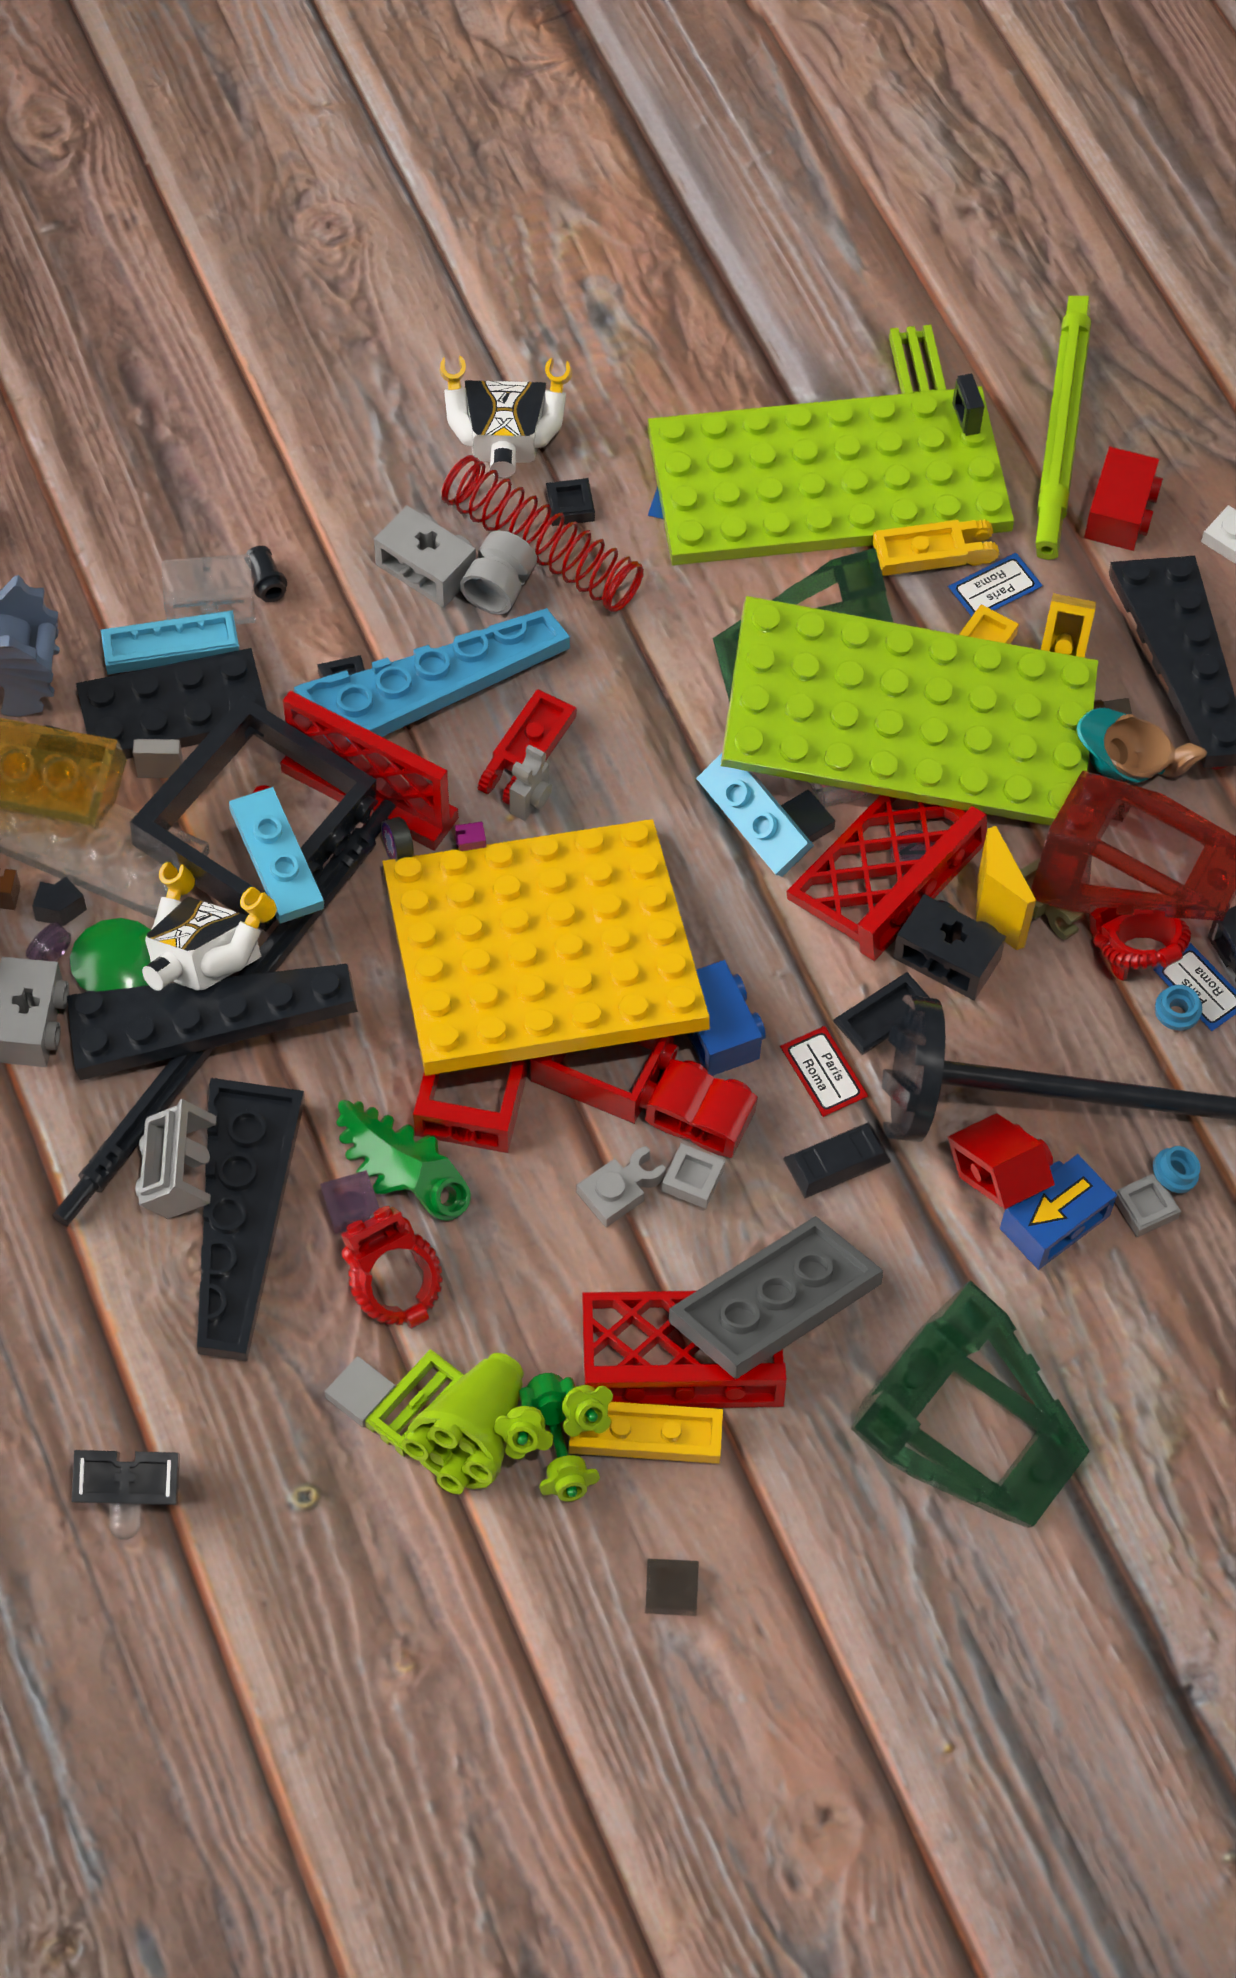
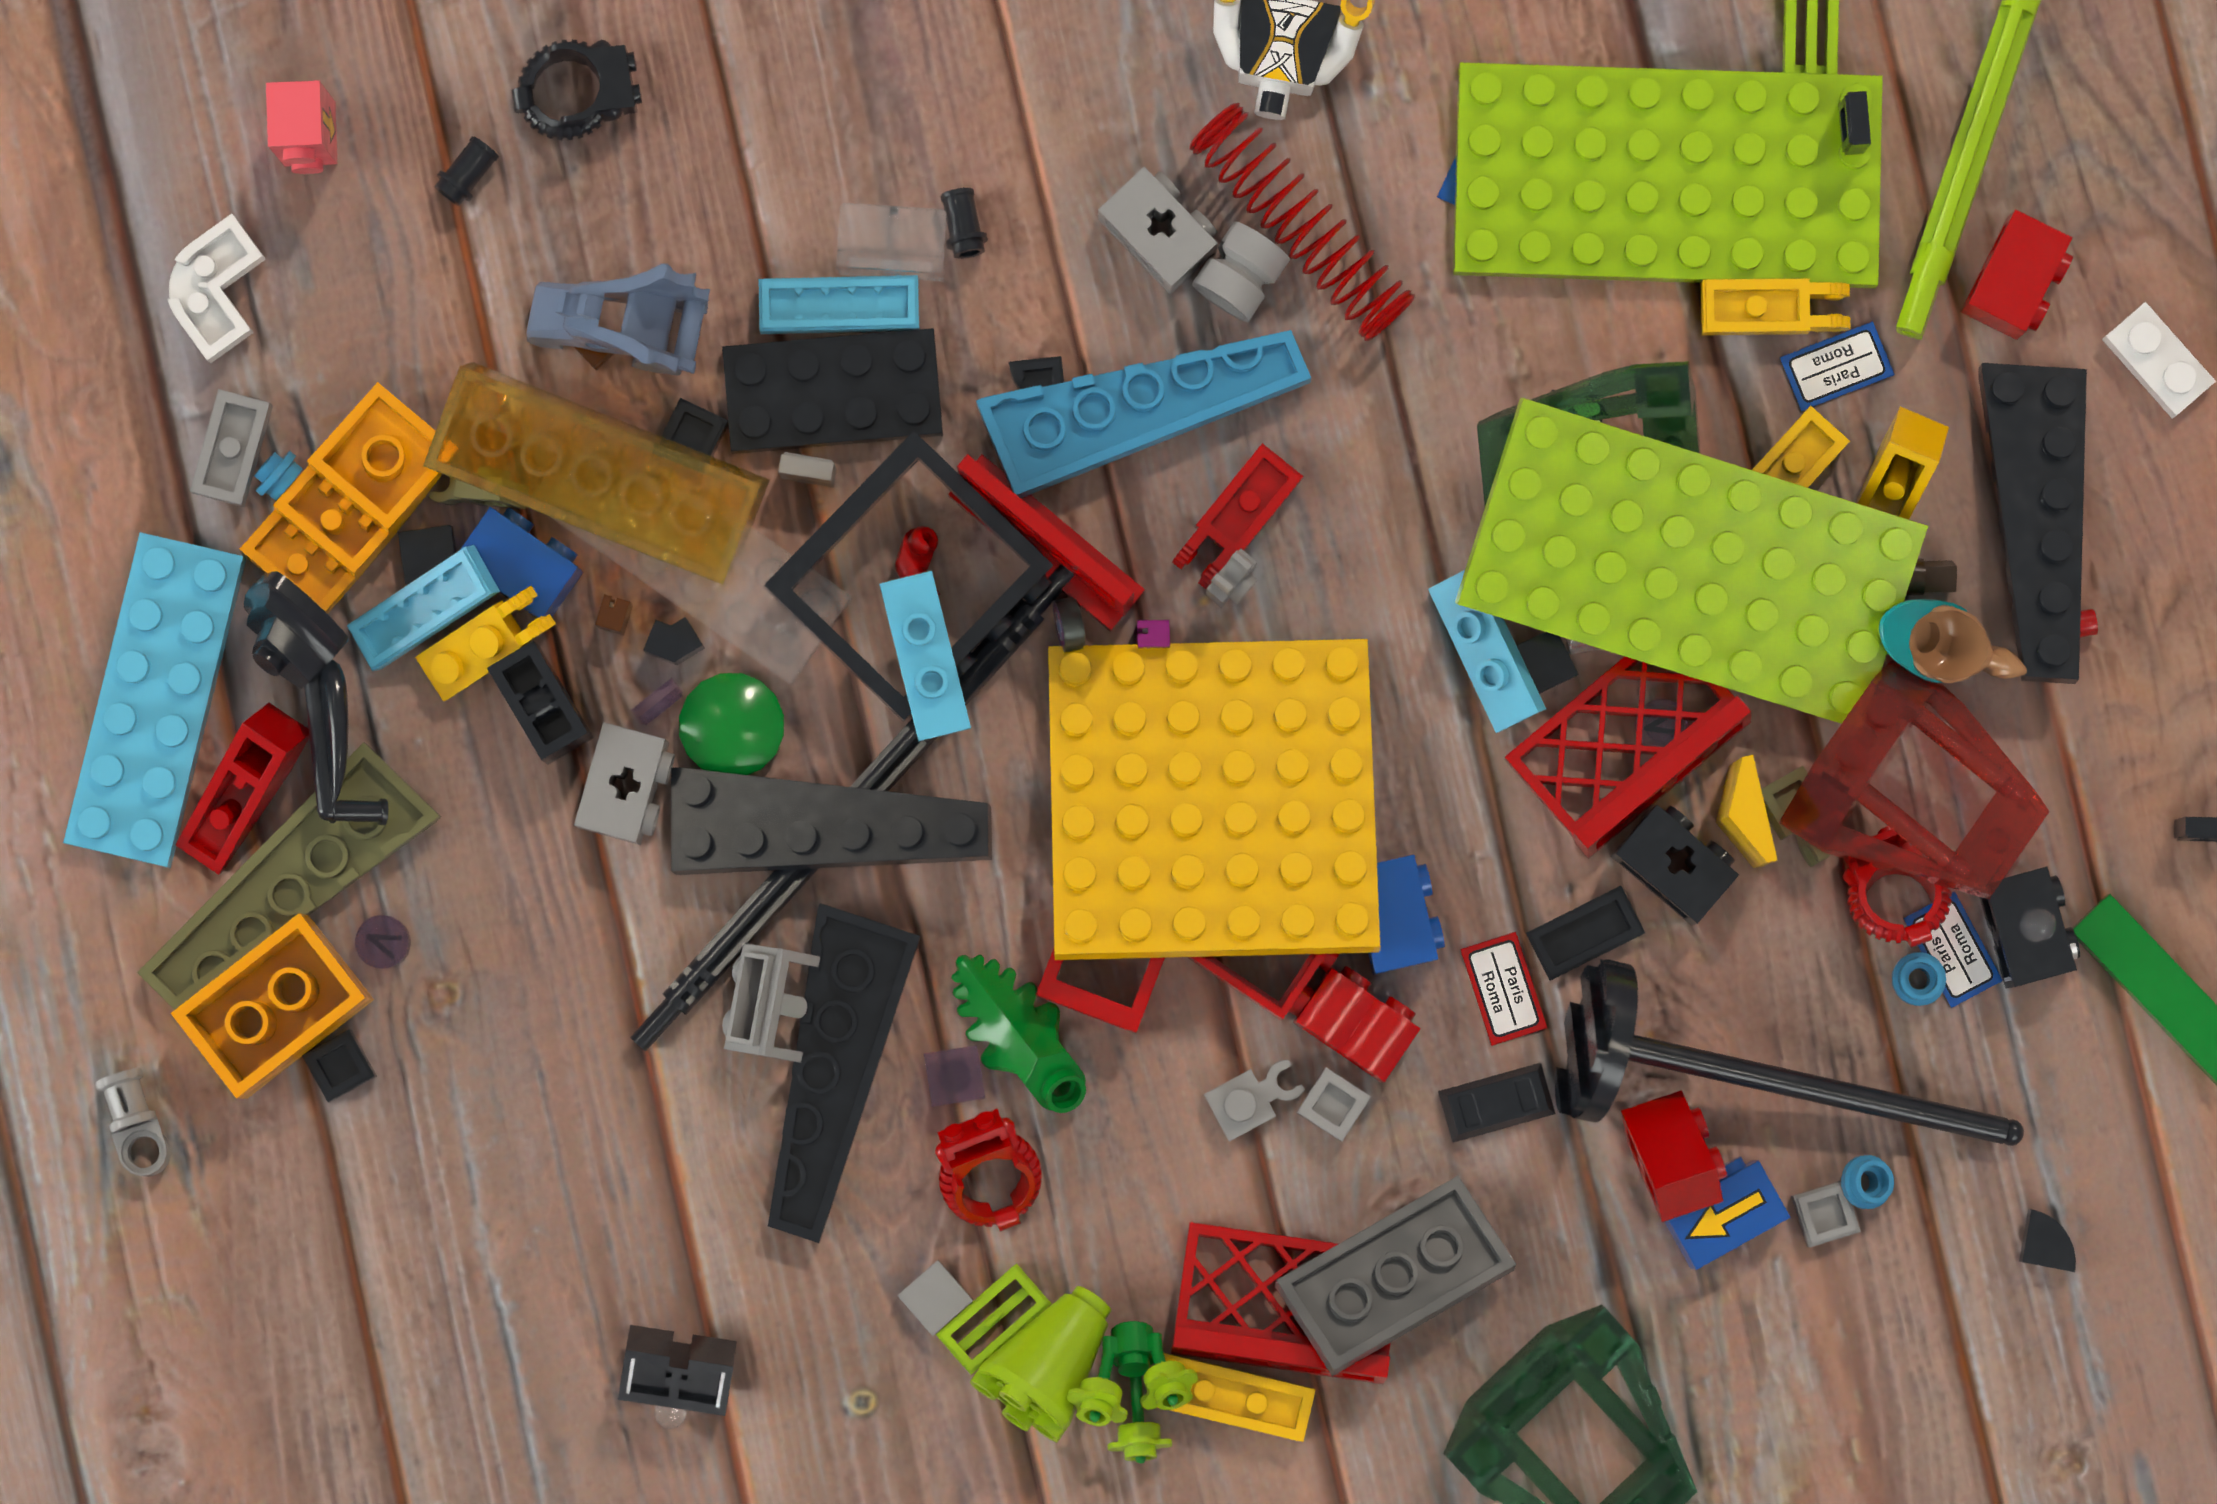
camera: 10 degrees right, 25 degrees up
(200, 941) = (824, 737): torso -> none
(572, 499) = (1345, 167): black tile -> none

